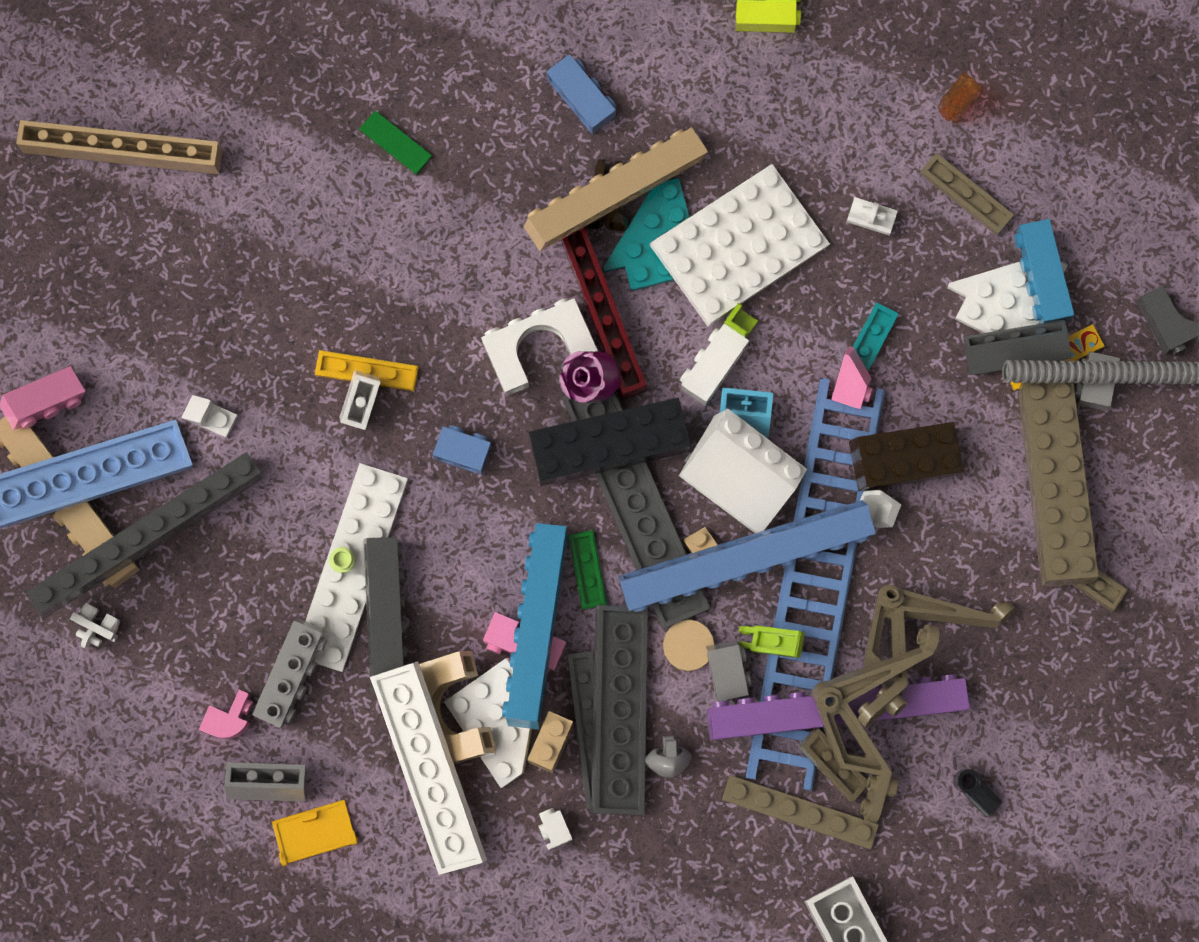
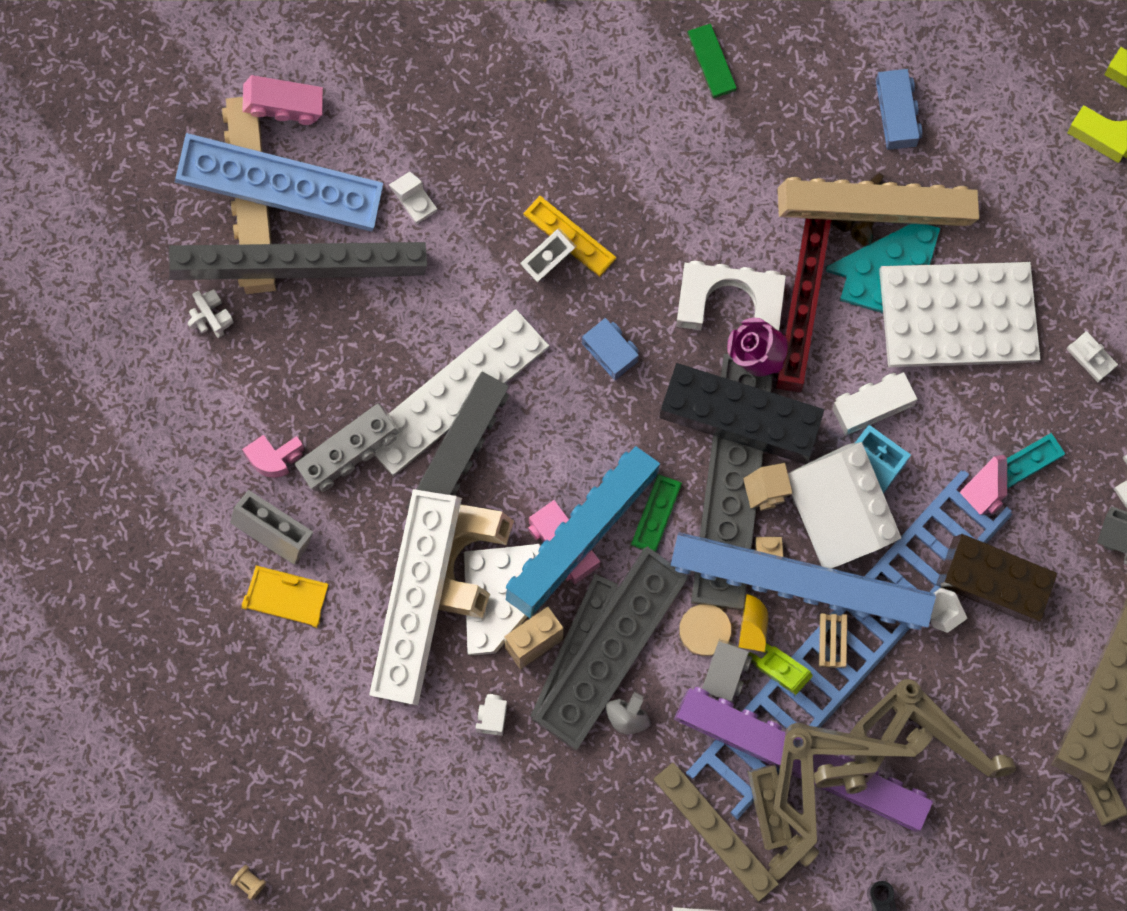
camera: 30 degrees right, 5 degrees down
(342, 560) = (450, 380): yellowish green plate -> none
(670, 493) = (768, 486): none -> tan brick
(728, 618) = (754, 625): none -> yellow brick
(740, 321) = (920, 379): lime panel -> none
(791, 571) = (843, 640): none -> tan tile

